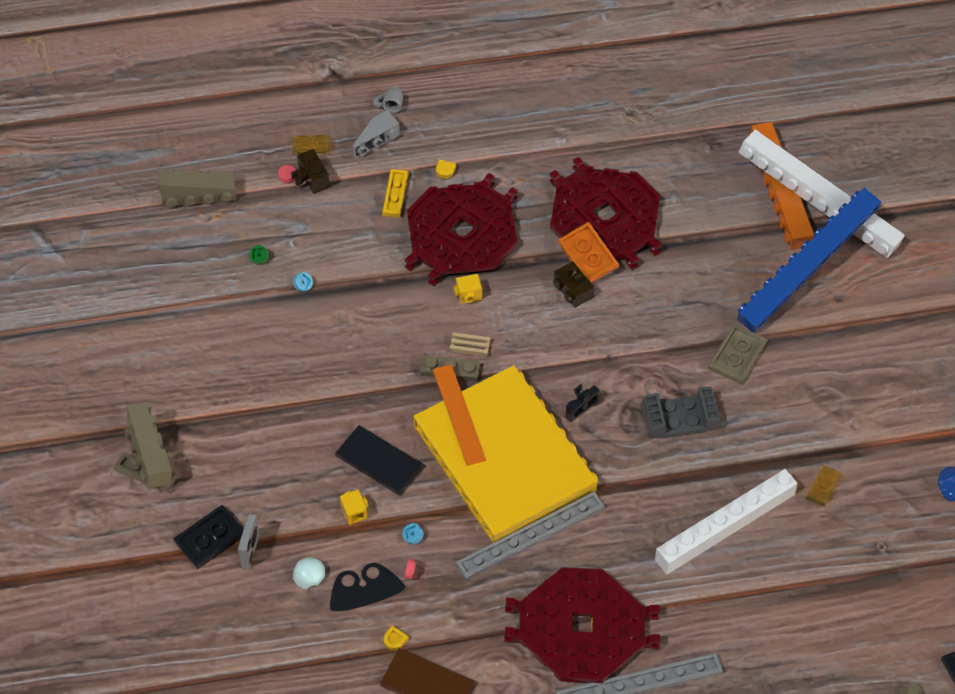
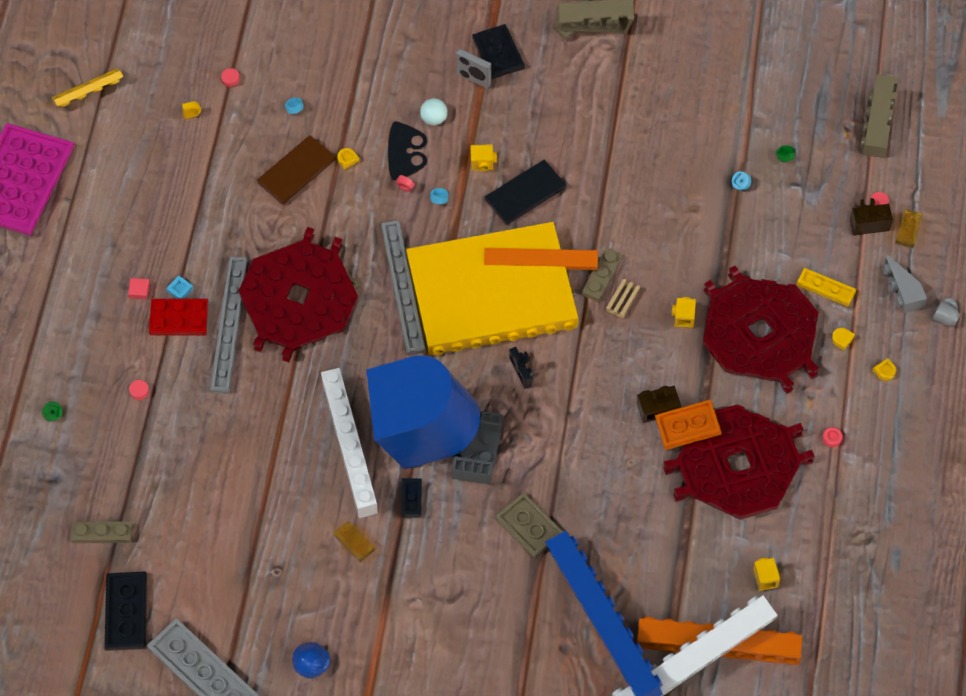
camera: 110 degrees right, 5 degrees up
(464, 132) = (885, 370): none -> yellow tile
(548, 155) = (832, 437): none -> coral tile
(686, 442) = (420, 411): none -> blue brick
(705, 165) = (766, 574): none -> yellow brick
(757, 452) = (411, 498): none -> black plate

